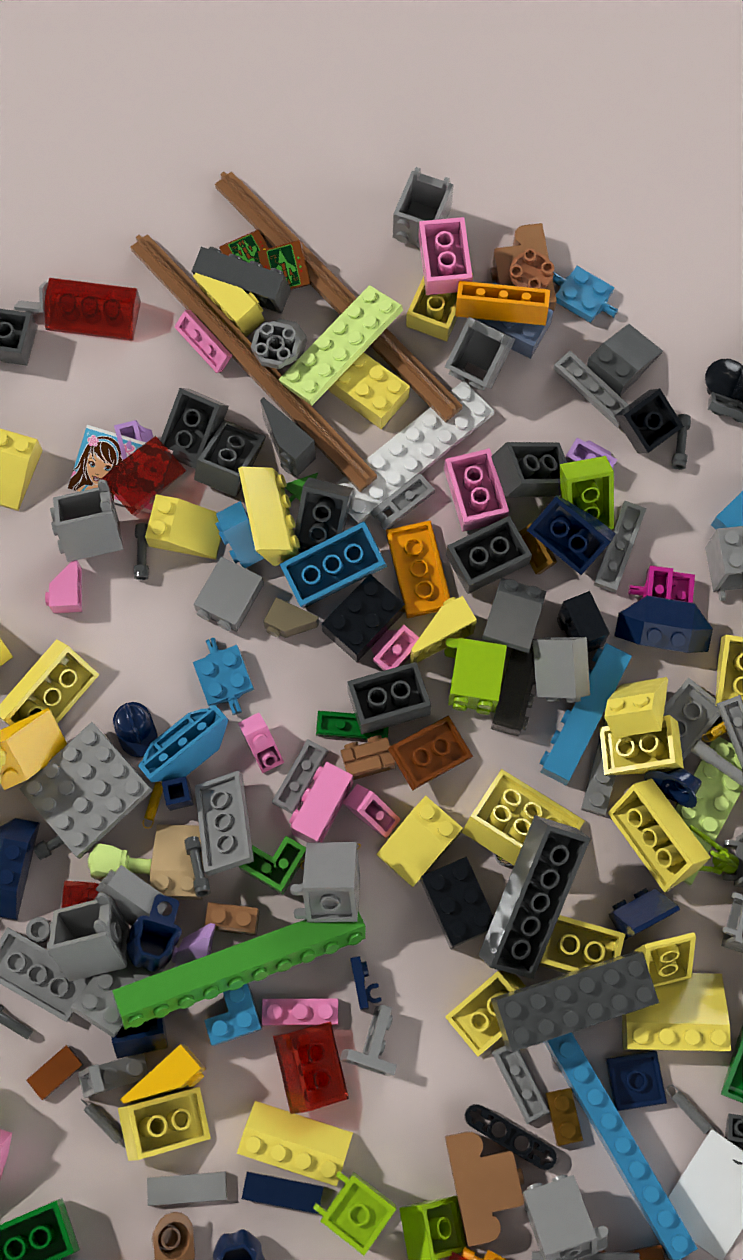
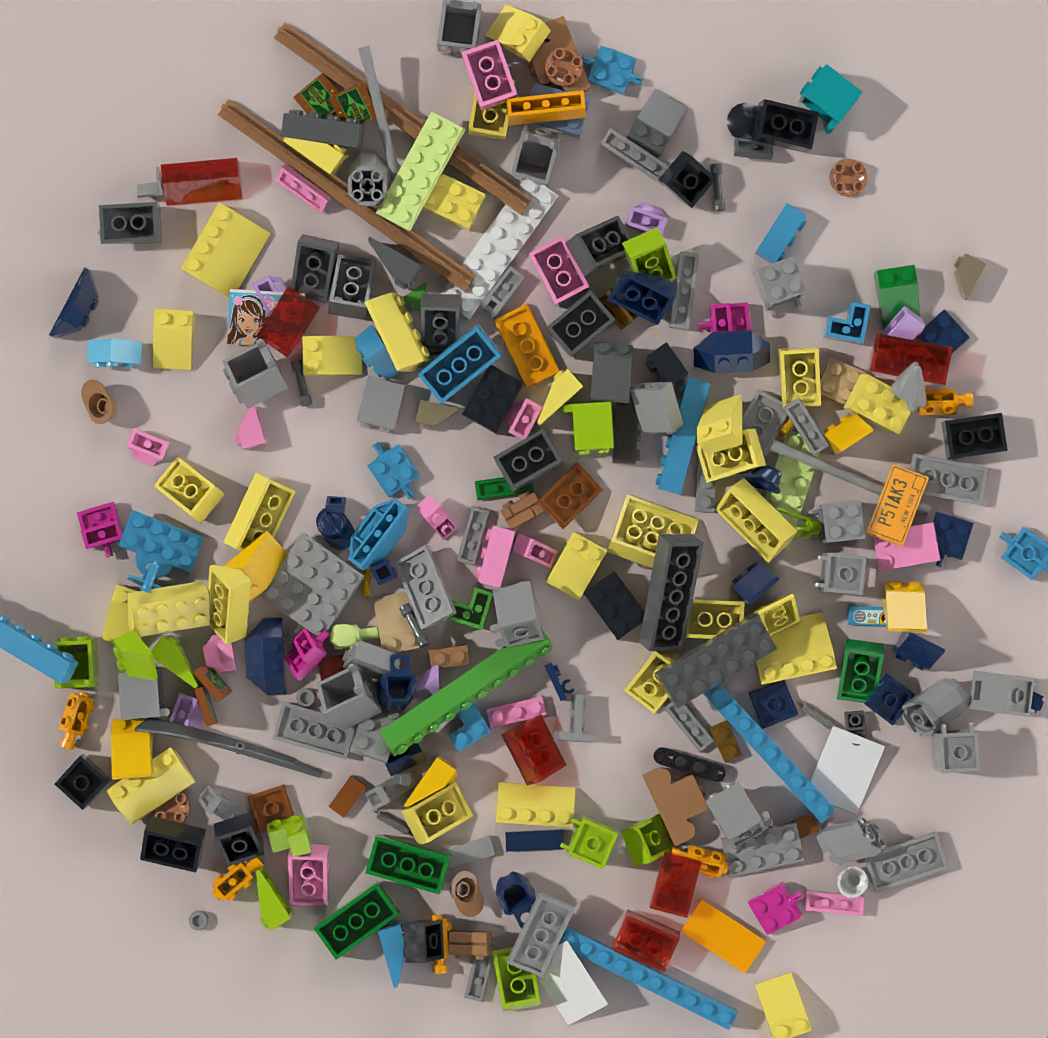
camera: 15 degrees left, 15 degrees up
(56, 869) = (306, 653): none -> dark pink plate
(95, 385) = (225, 250): none -> light yellow slope
(107, 1184) = (408, 864): none -> green brick
(142, 699) = (335, 504): none -> dark blue tile
(310, 220) = (367, 62): none -> light grey piece
(493, 229) = (518, 32): none -> light yellow slope

